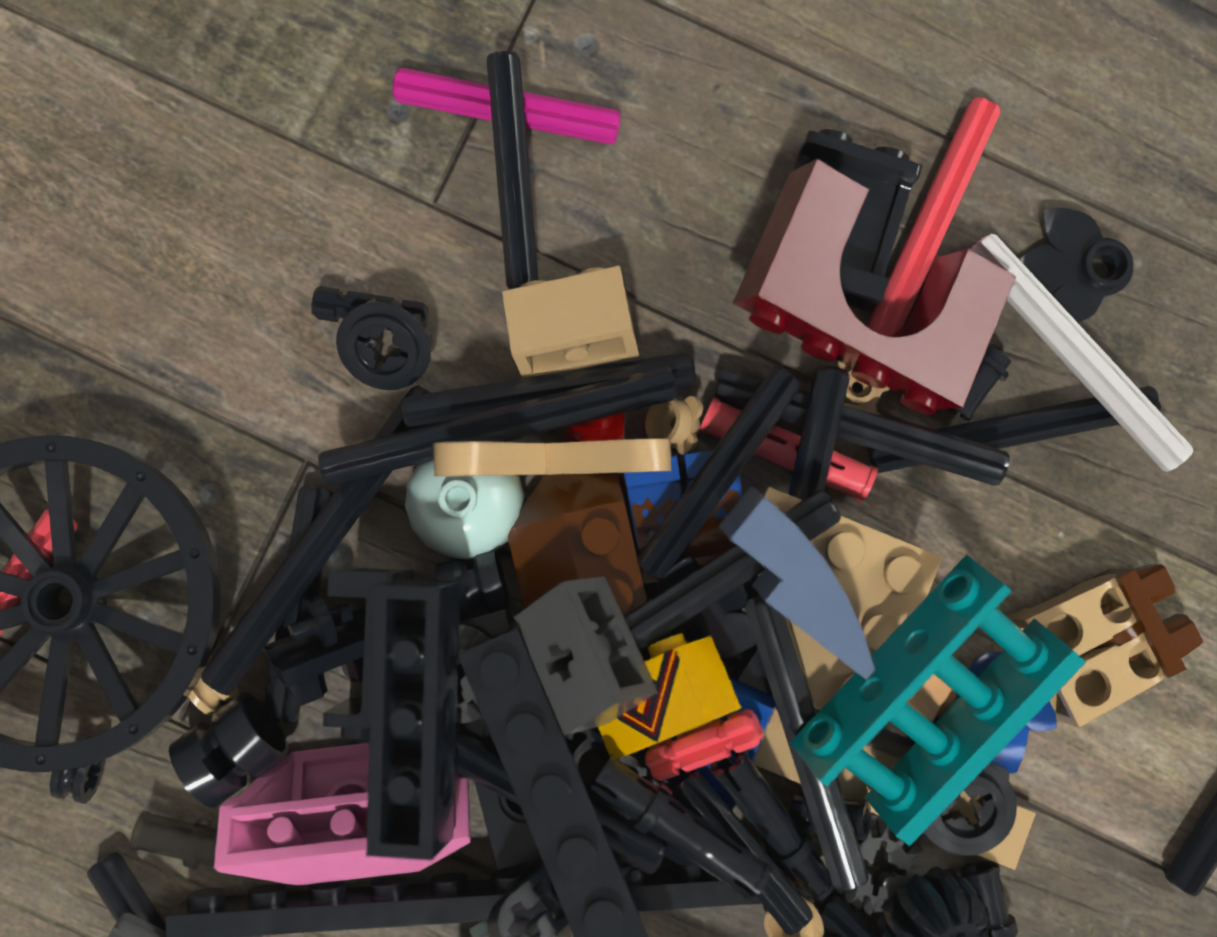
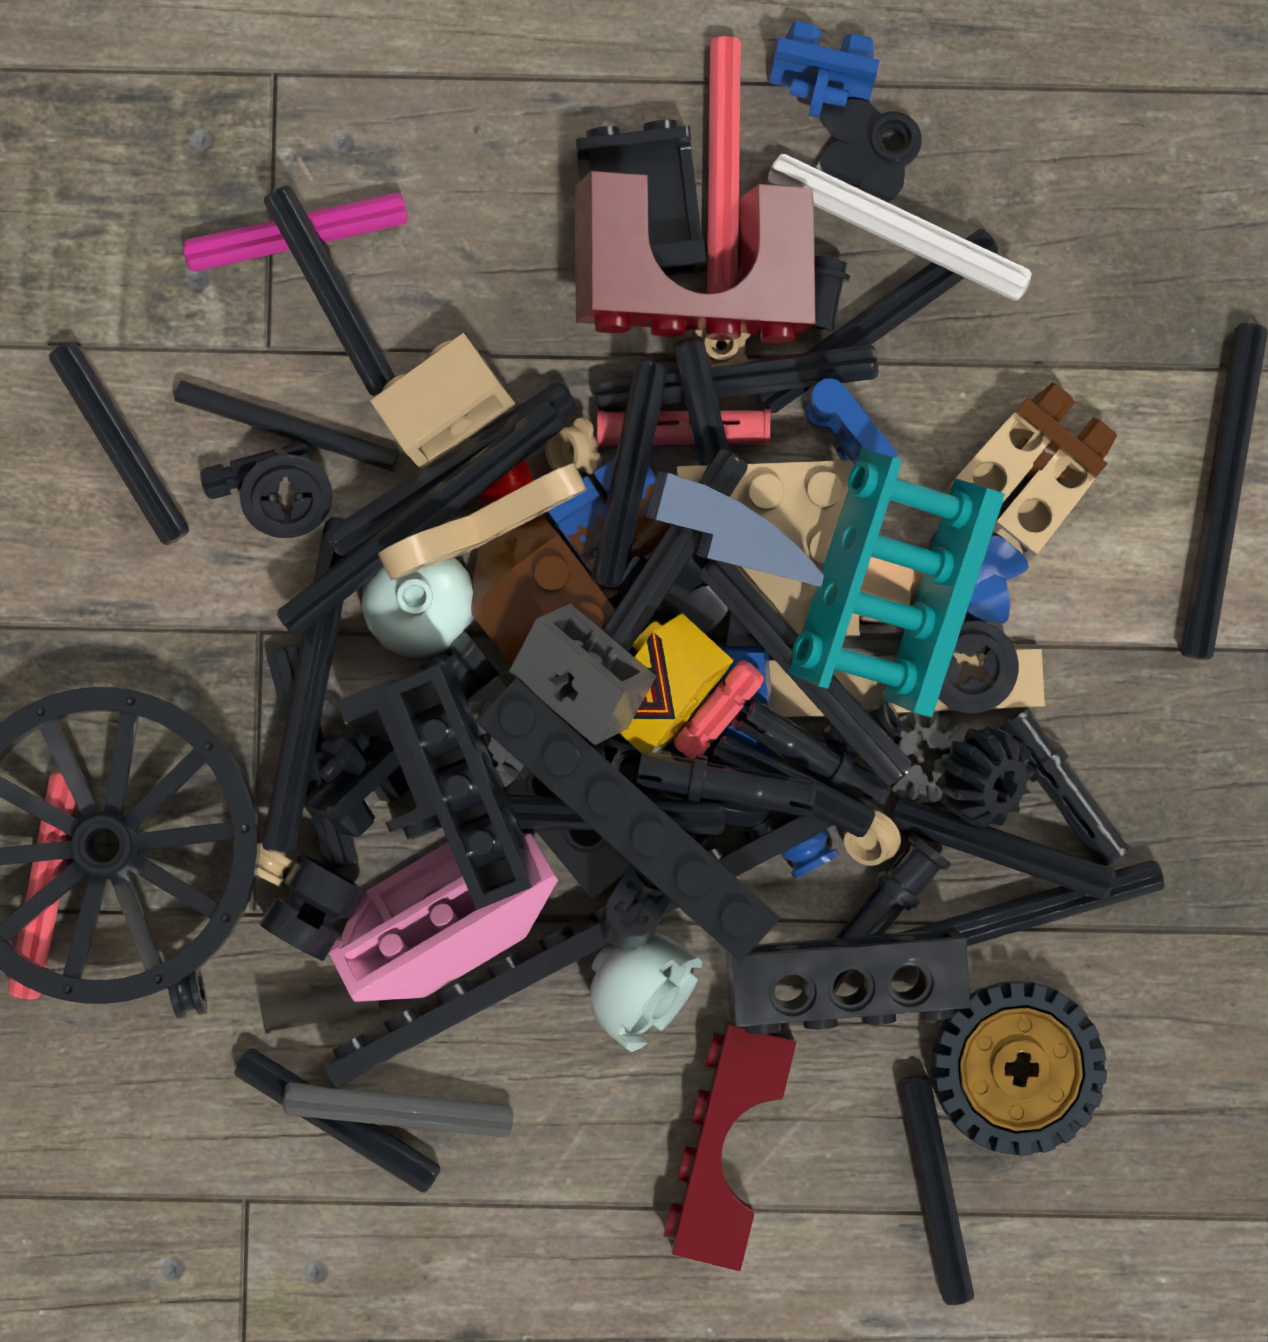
camera: 25 degrees left, 0 degrees up
(254, 228) = (118, 443): none -> black axle
(417, 281) = (286, 425): none -> black bar
(728, 920) = (810, 854): none -> blue bush
(950, 518) = (837, 410): none -> blue plate
(1068, 171) = (823, 72): none -> blue hips

